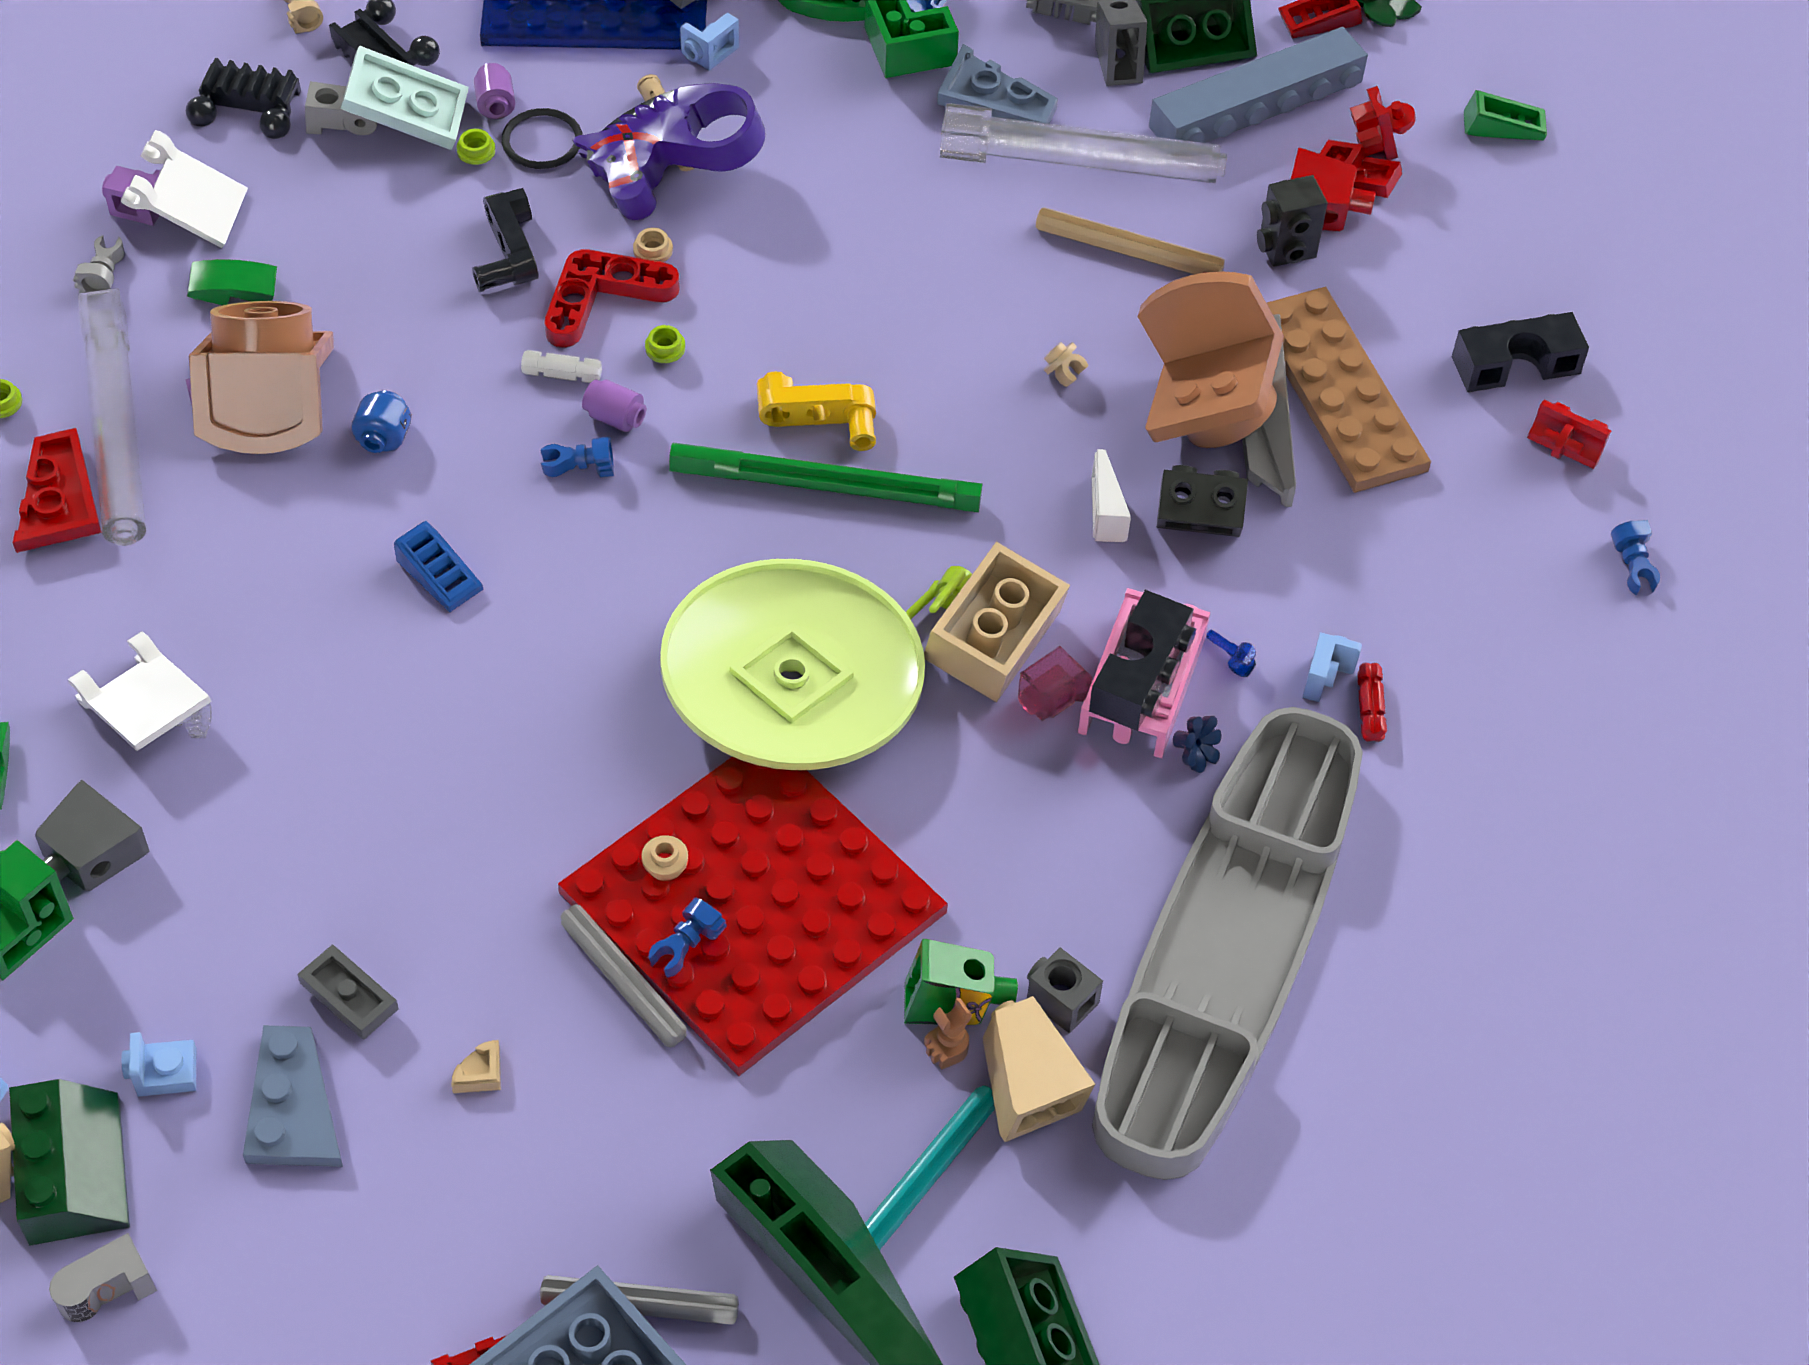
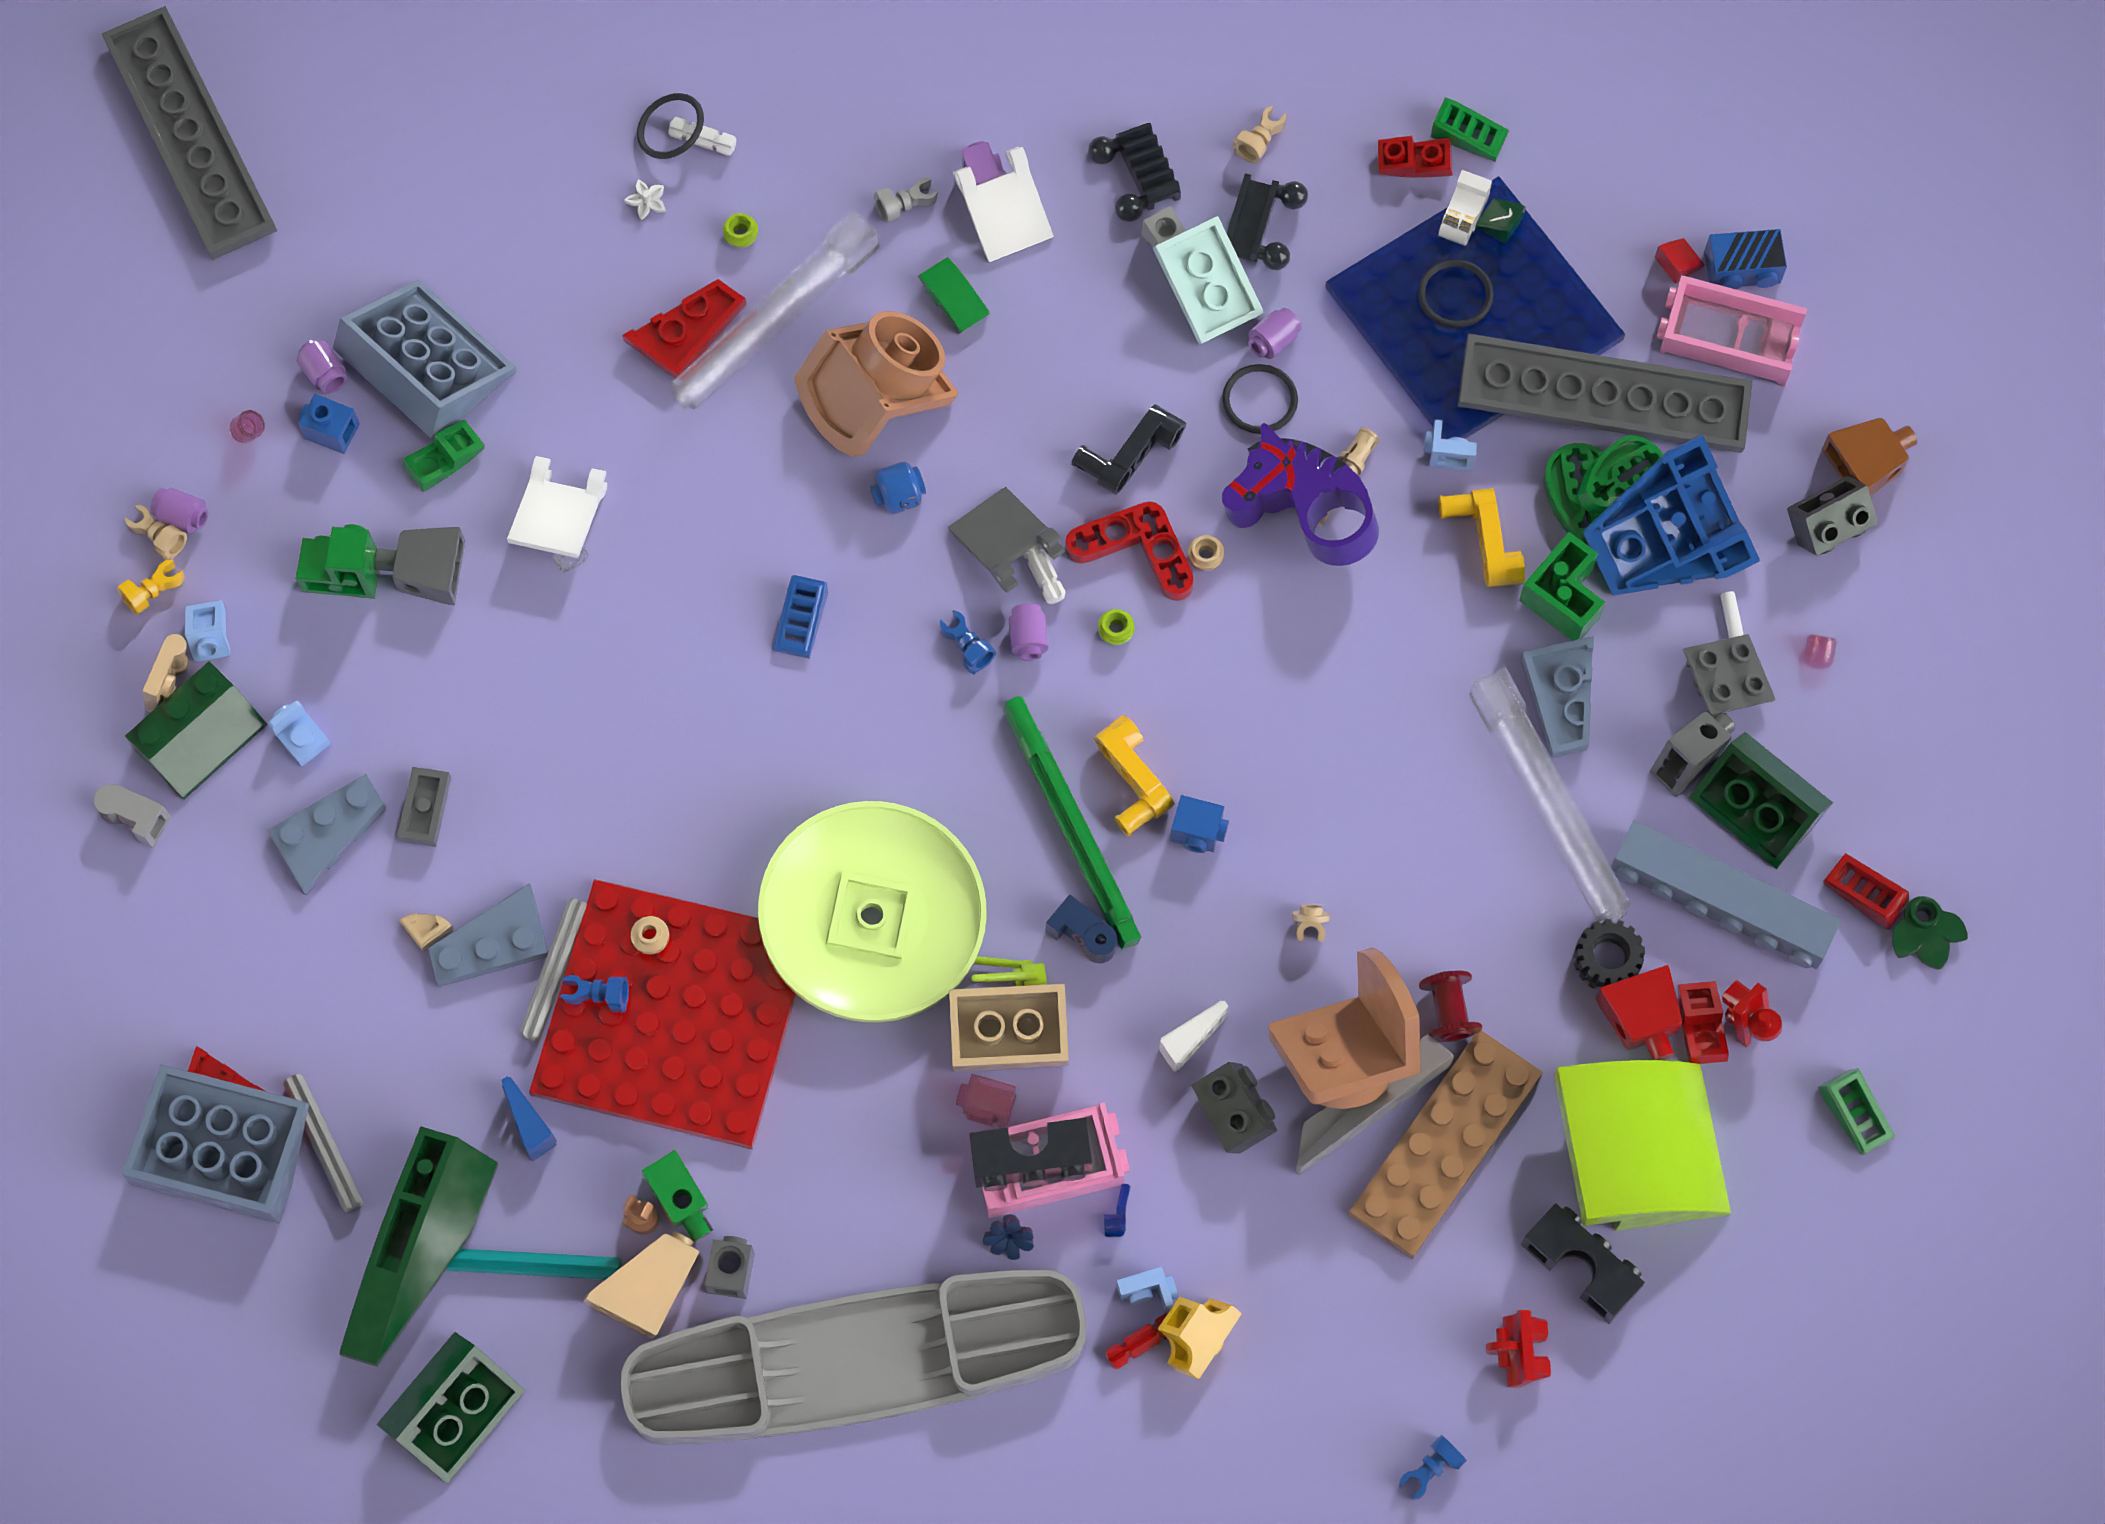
camera: 60 degrees right, 15 degrees up
(475, 147) = (1210, 352): lime plate -> none
(506, 370) = (1001, 533): none -> dark grey flag
(545, 1015) = (492, 941): none -> sand blue wing
(769, 1083) = (532, 1130): none -> blue slope
(813, 60) = (1498, 567): none -> yellow beam
(907, 387) = (1198, 824): none -> blue brick
(939, 523) = (1084, 928): none -> dark blue leg
(1127, 242) = (1478, 896): tan axle -> none
(1247, 173) = (1613, 933): none -> black tyre
(1292, 220) = (1577, 1005): pearl dark grey brick -> none
(1400, 649) = (1197, 1333): none -> yellow brick
(1440, 255) = (1641, 1143): none -> lime slope

